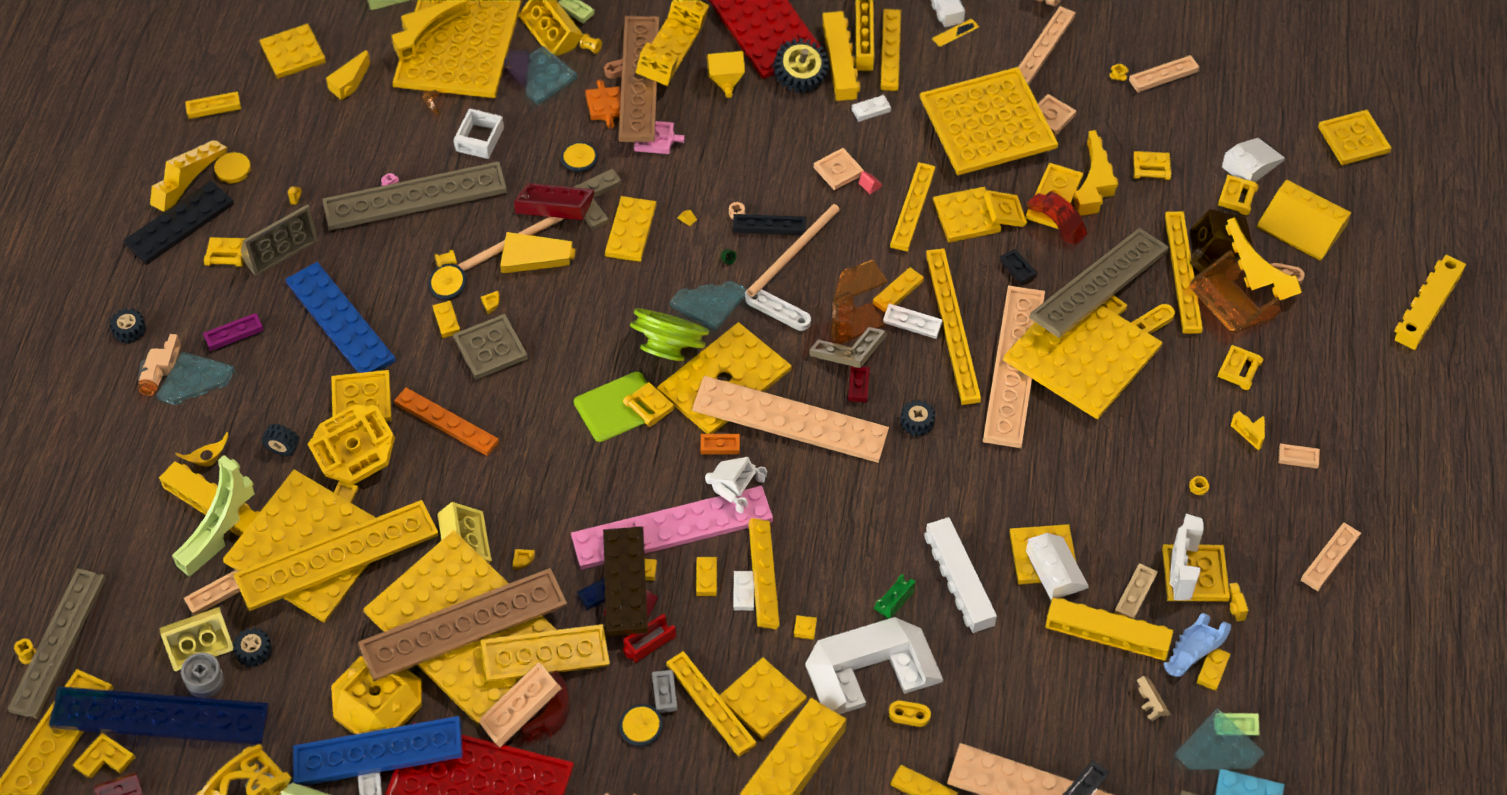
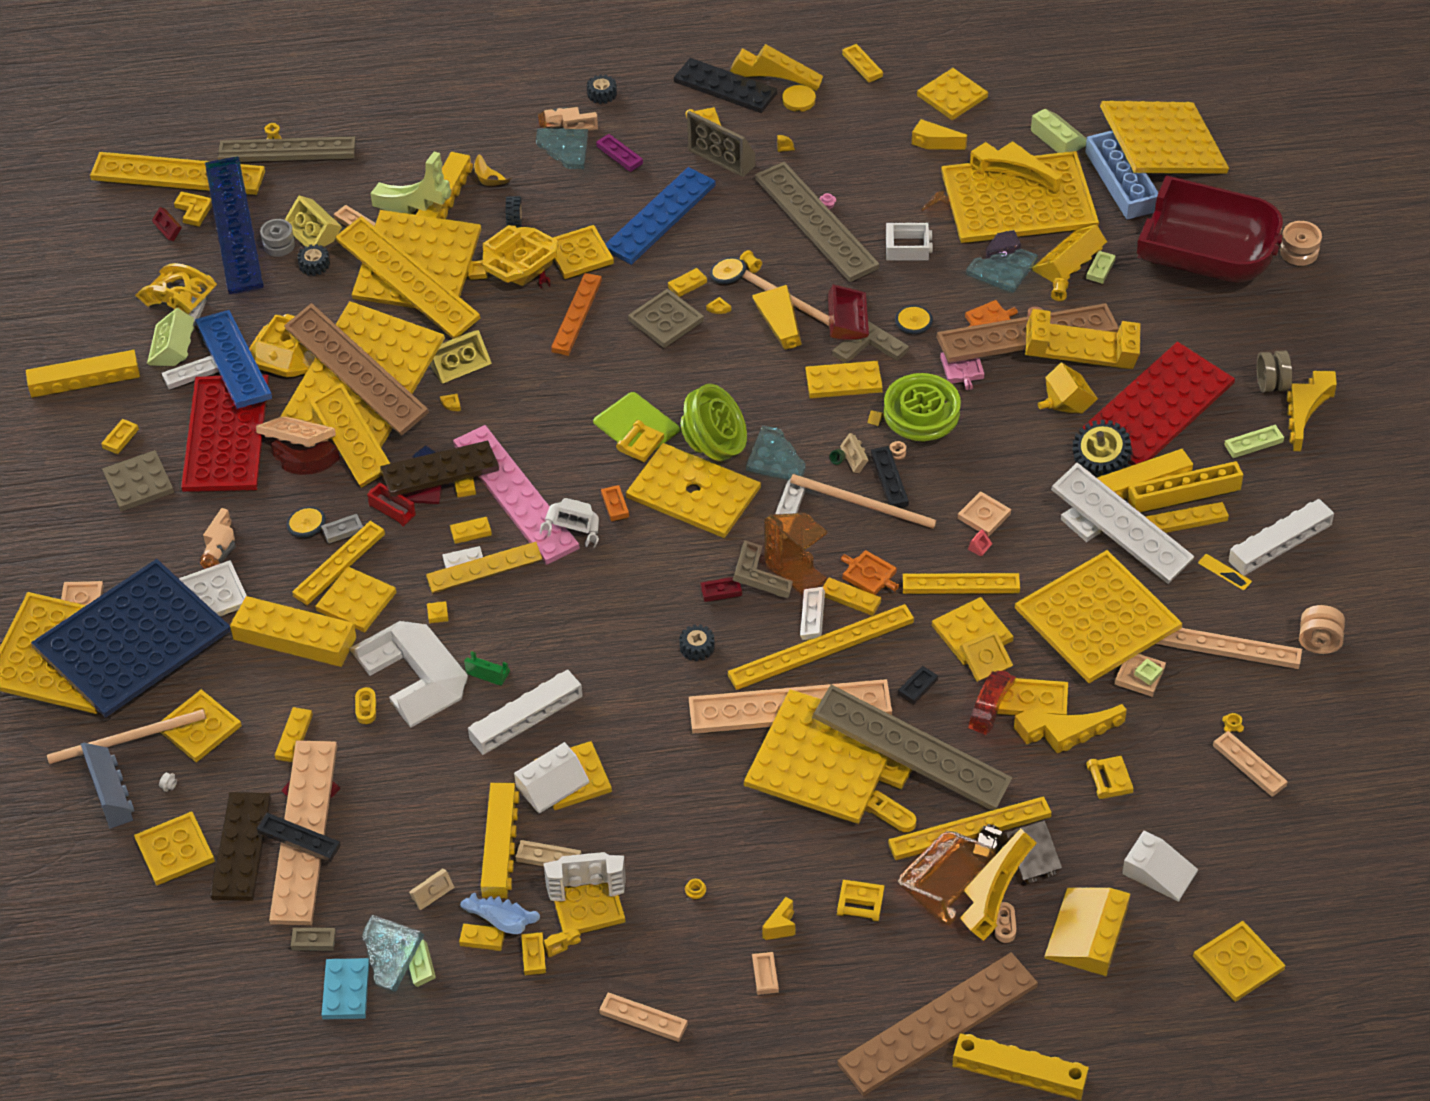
camera: 75 degrees right, 5 degrees down
(712, 158) = (917, 407): none -> lime wheel
(731, 240) = (854, 453): none -> tan plate
(791, 419) = (659, 547): light nougat plate -> none
(886, 262) = (869, 573): none -> orange plate
(891, 75) = (1122, 523): none -> white plate
(1060, 104) = (1148, 672): none -> yellowish green plate
(1232, 191) = (1102, 855): yellow plate -> none
(1246, 628) = (533, 953): none -> yellow plate
(1375, 349) = (937, 1024): none -> medium nougat plate

